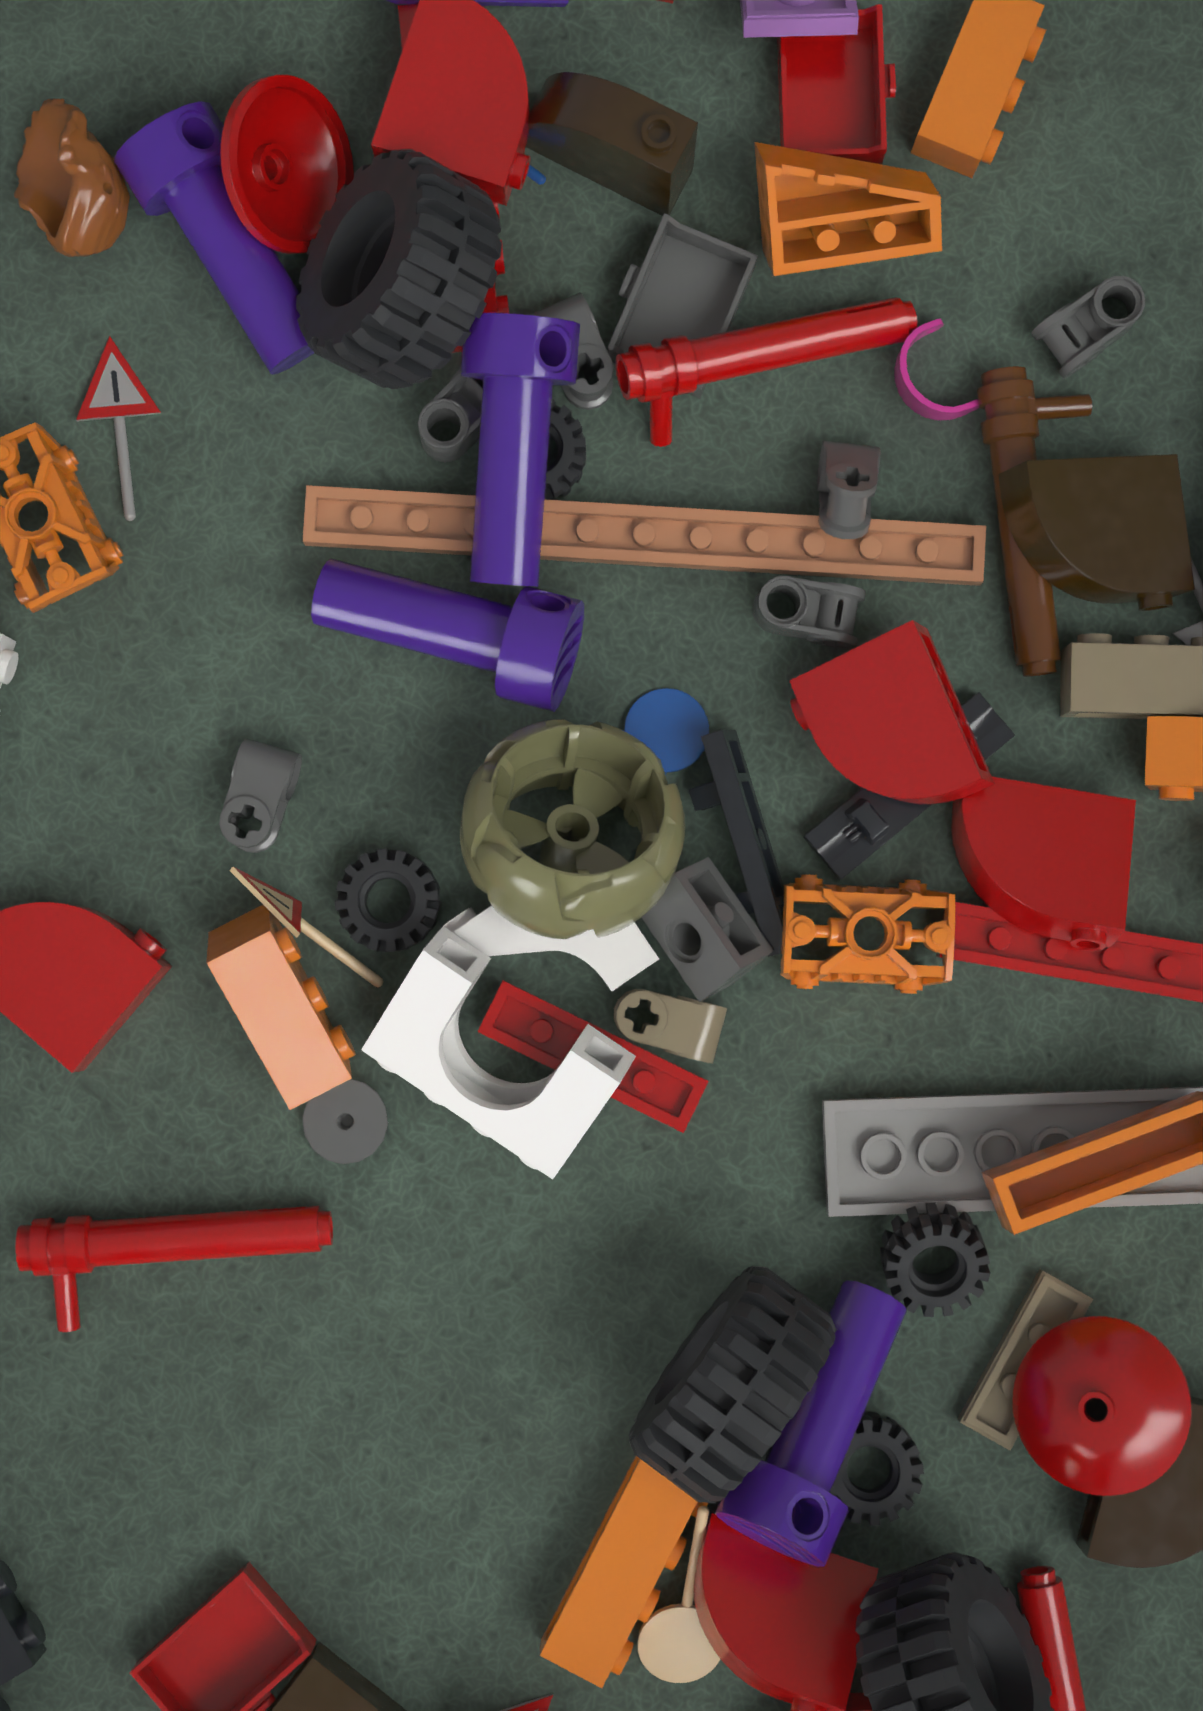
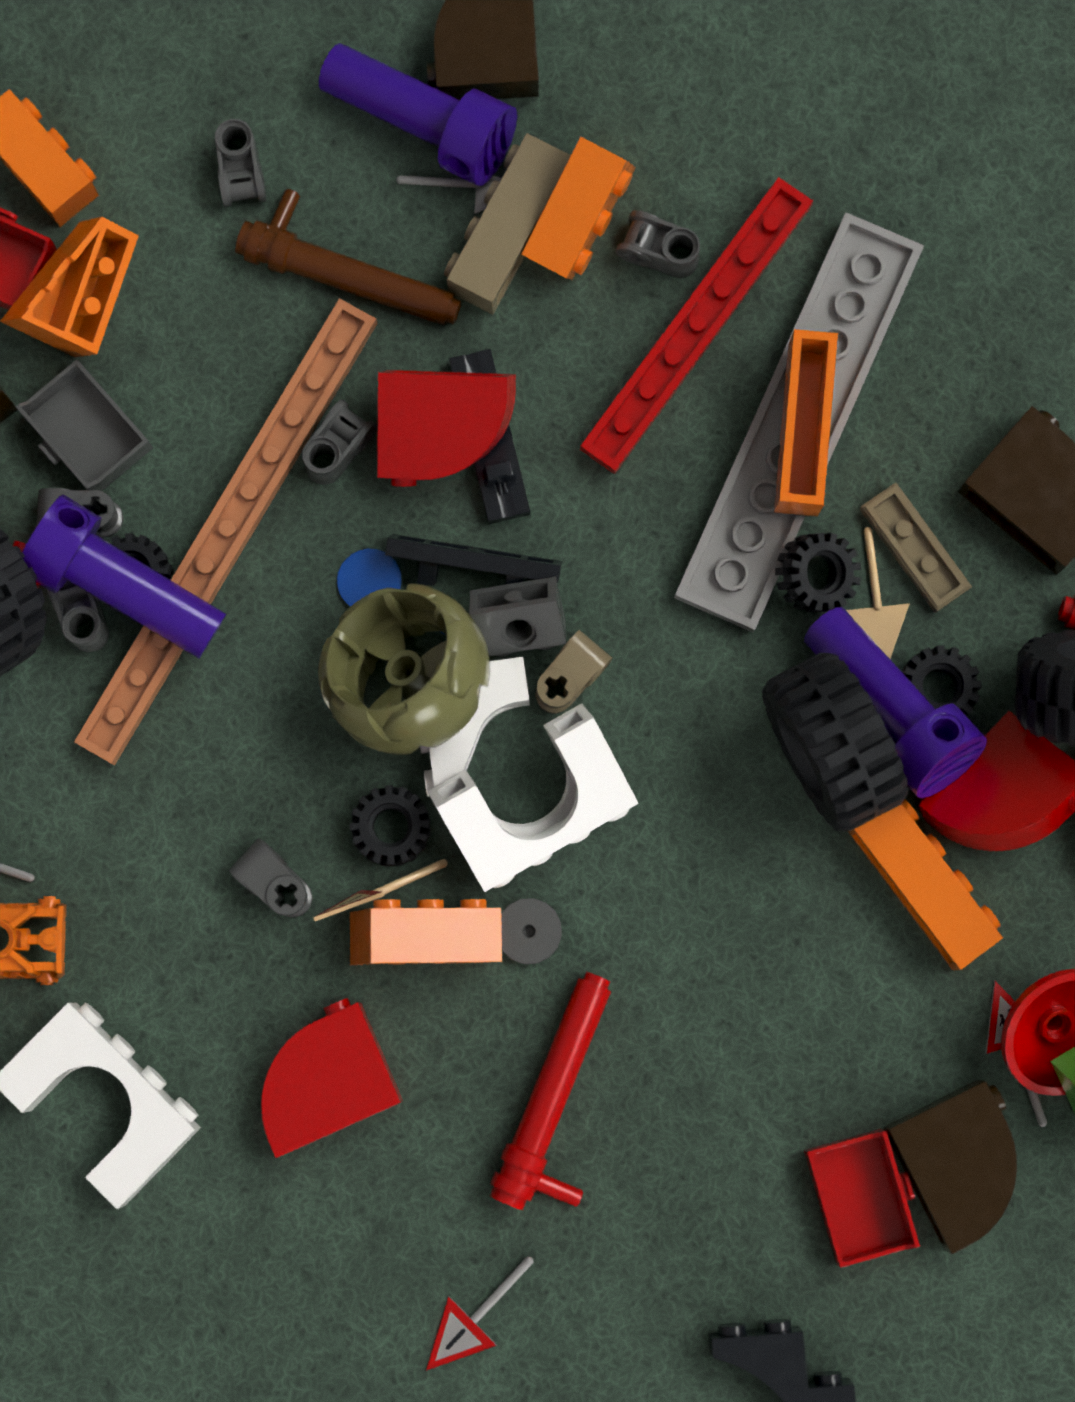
camera: 65 degrees left, 5 degrees down
(525, 644) = (261, 644): dark purple piece -> none
(549, 1032) = (537, 758): red plate -> none
(672, 1638) = (996, 876): tan piece -> none
(682, 364) = (125, 442): red cylinder -> none
(845, 488) = (264, 377): dark grey piece -> none
(852, 962) = (591, 526): orange piece -> none
(911, 395) = (224, 305): dark pink helmet -> none
(913, 1358) = (880, 621): none -> tan piece
(1048, 858) = (584, 365): red brick -> none
(1103, 526) = (379, 221): dark brown brick -> none
(1143, 1397) = (976, 475): red dish -> none

